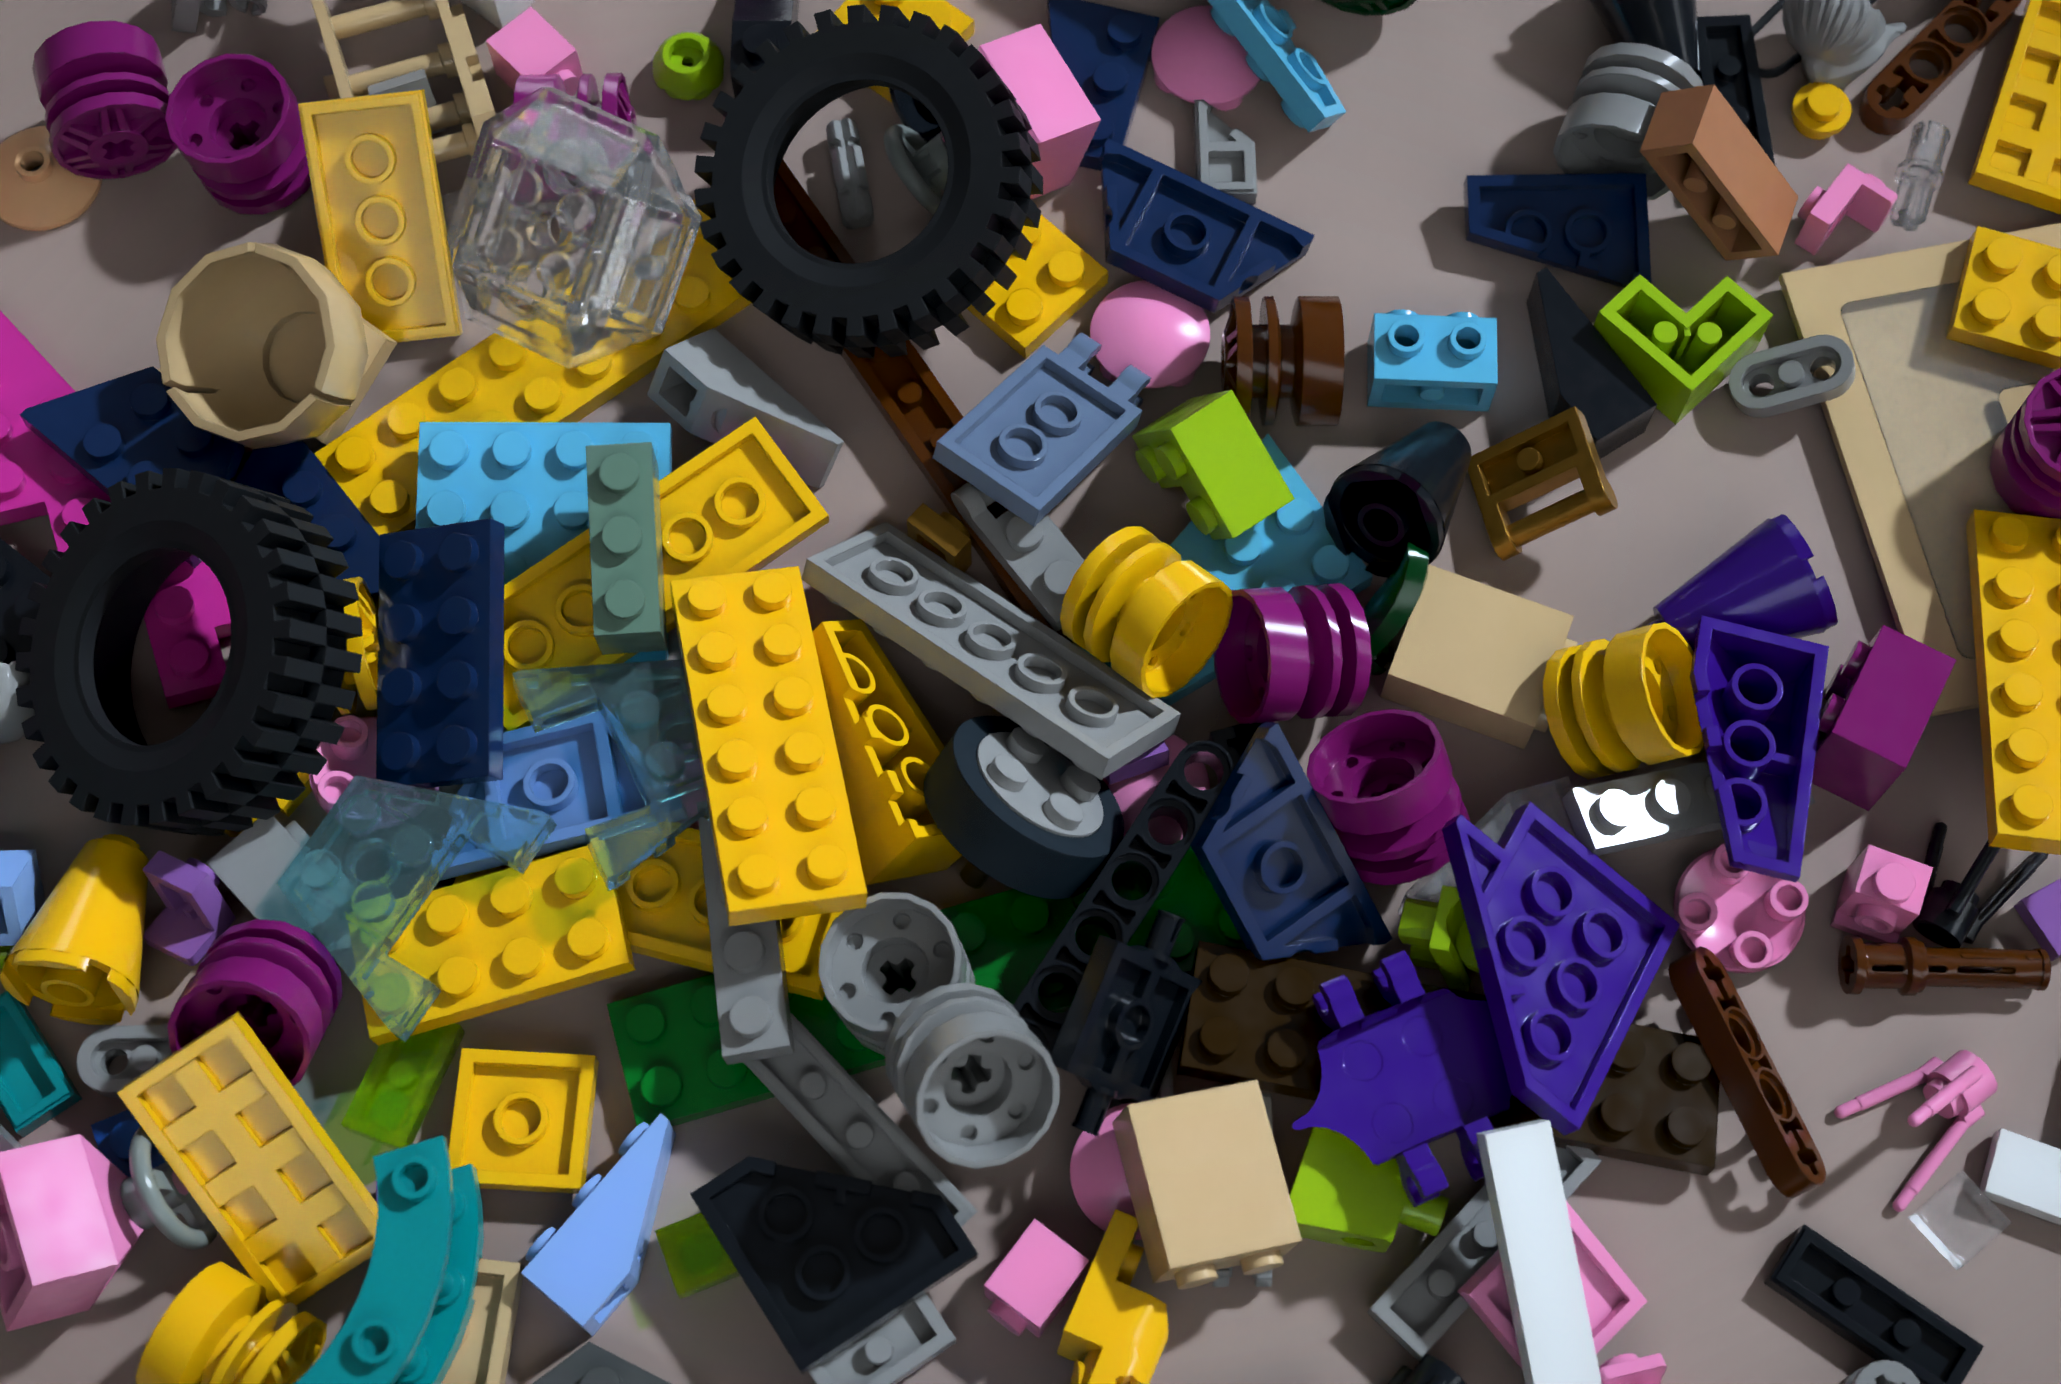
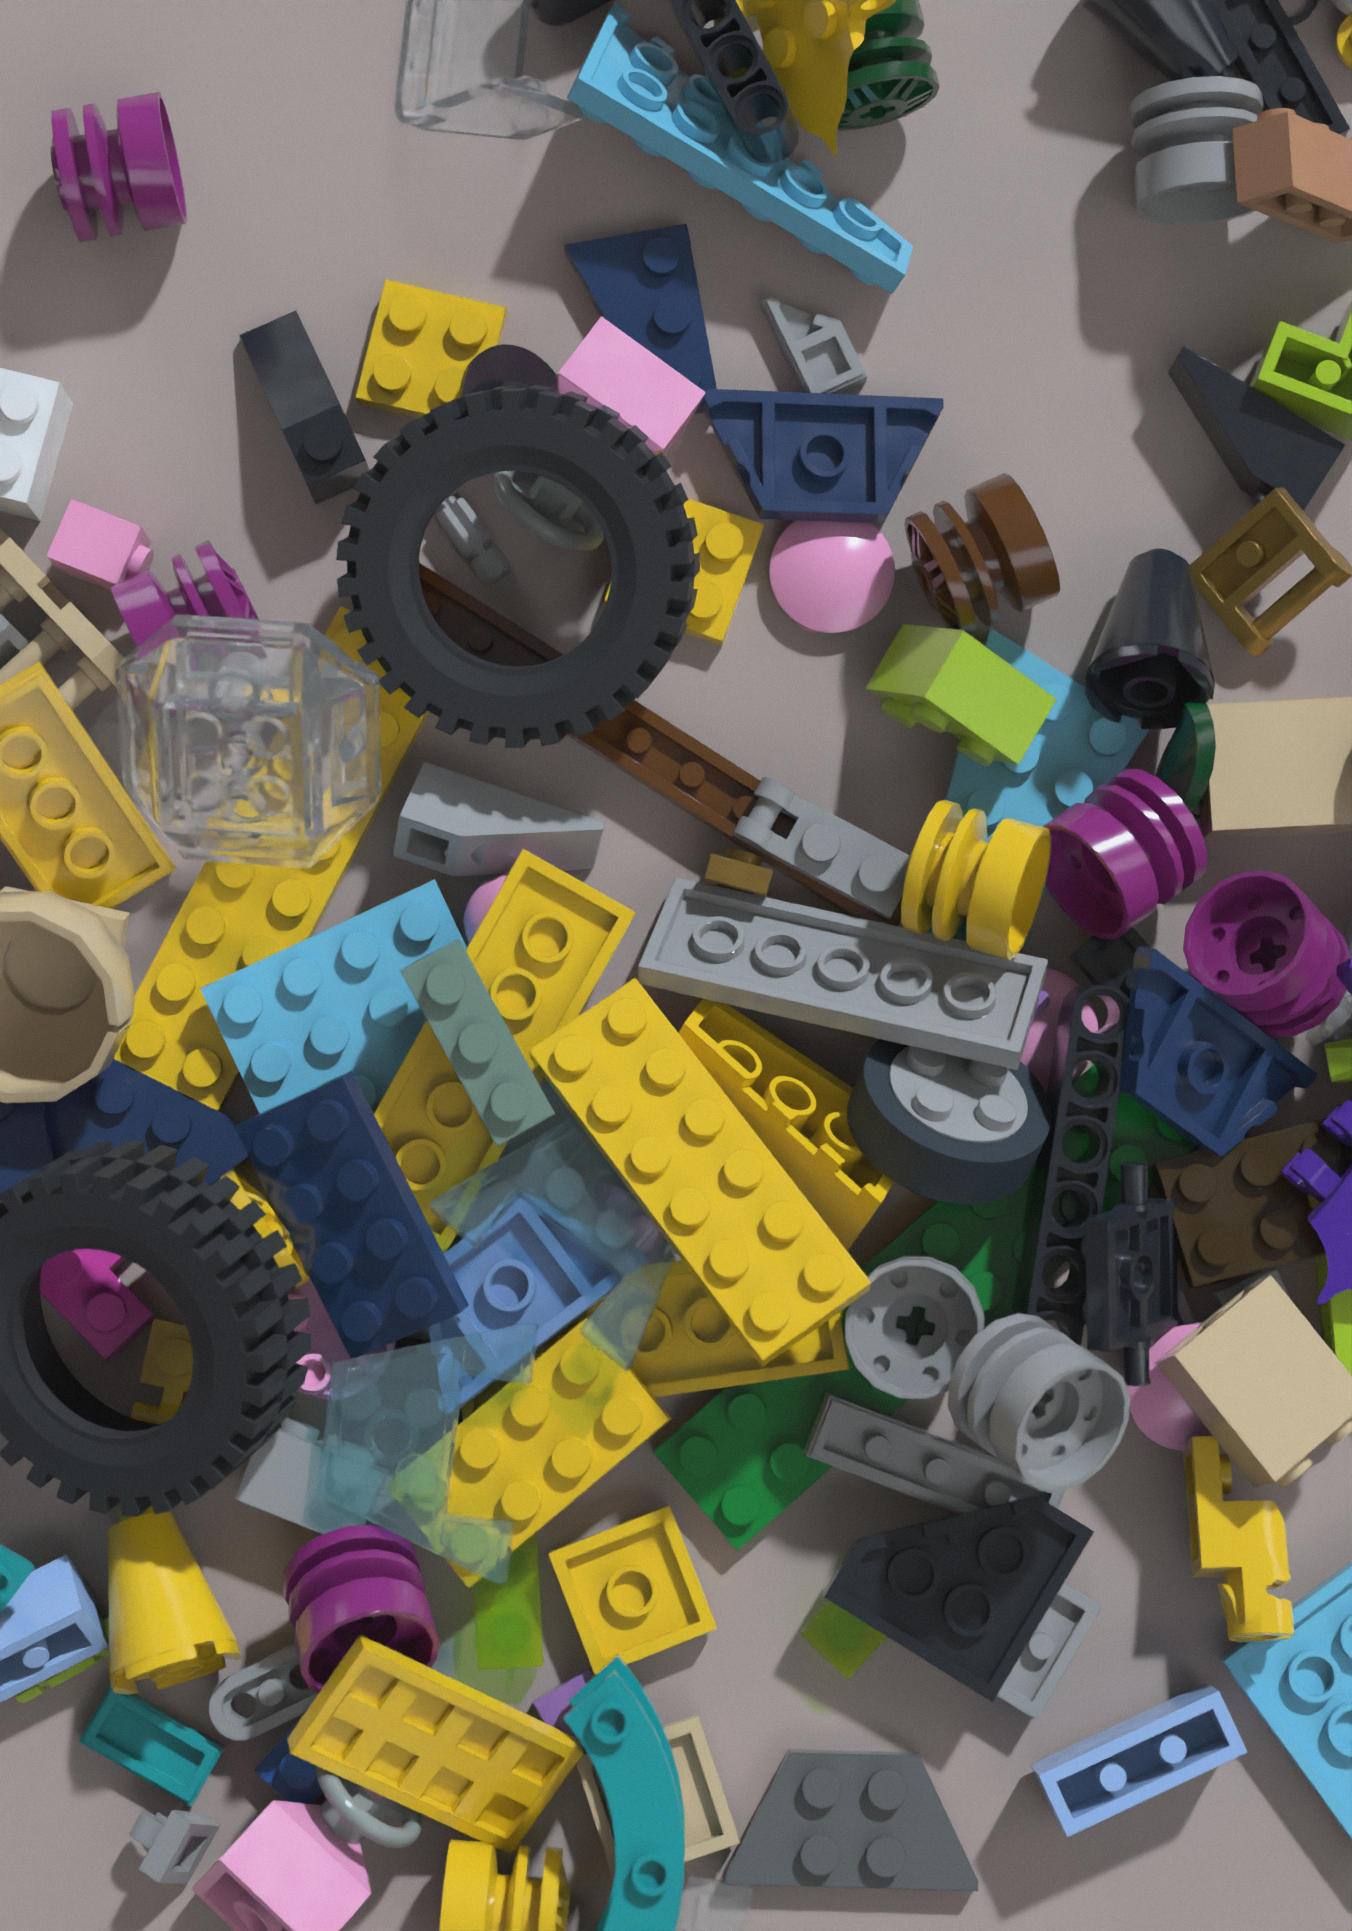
camera: 25 degrees left, 15 degrees up
(193, 909) = (238, 1545): medium lavender bracket -> none
(603, 1245) = (760, 1672): light blue slope -> none
(688, 81) = (250, 501): lime plate -> none
(746, 974) = (783, 1390): light grey plate -> none
(1034, 1280) = (1146, 1525): bright pink brick -> none
(1043, 429) = (790, 730): sand blue tile -> none
(1201, 60) = (745, 255): bright pink dish -> none
(1432, 361) = (1111, 483): medium azure brick -> none
(1565, 221) = (1176, 276): dark blue wing -> none

